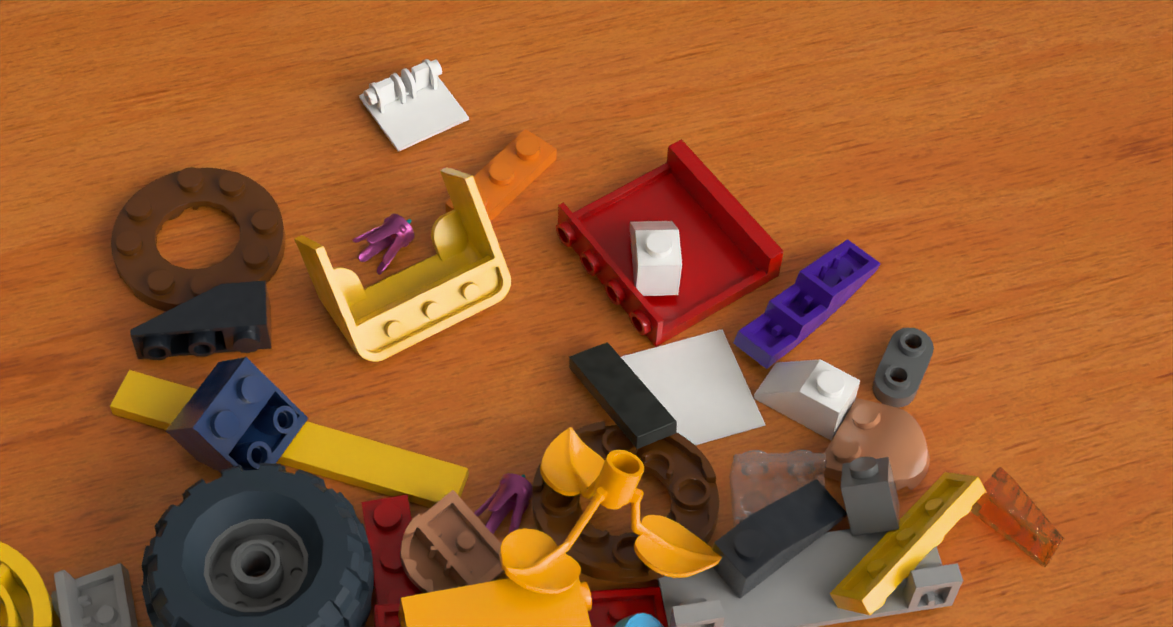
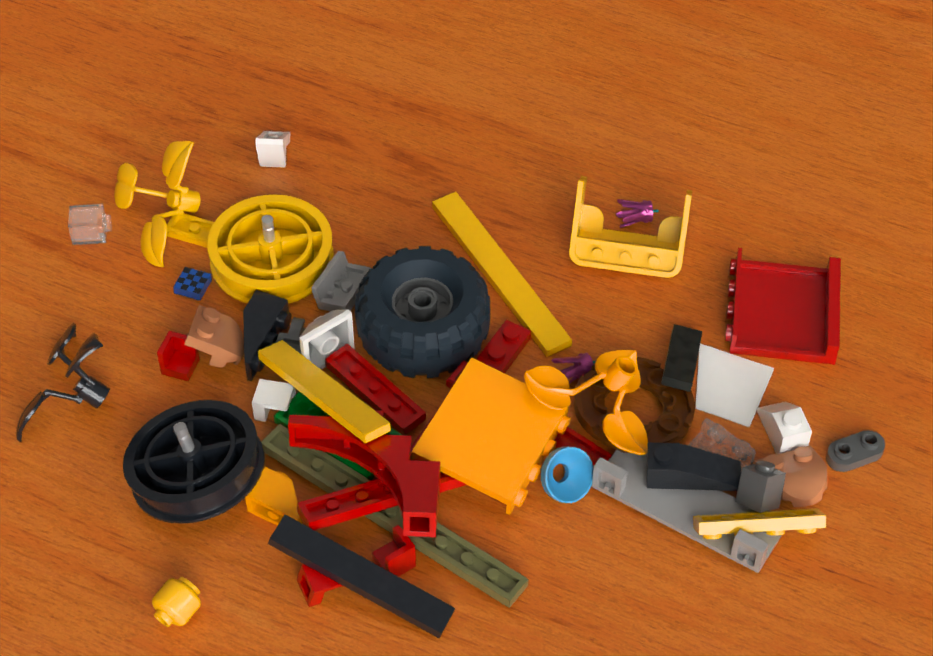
camera: 45 degrees right, 5 degrees down
(166, 198) = (558, 182): reddish brown plate -> none
(216, 321) = (515, 195): black slope -> none
(237, 418) = (482, 241): dark blue slope -> none
(413, 105) = (716, 158): white hinge -> none
(449, 548) = (520, 355): nougat slope -> none
(511, 172) = (728, 223): orange plate -> none
(656, 257) = (765, 305): white slope -> none
(807, 303) = (834, 385): dark purple slope -> none
(1017, 517) = (835, 555): clear orange slope -> none

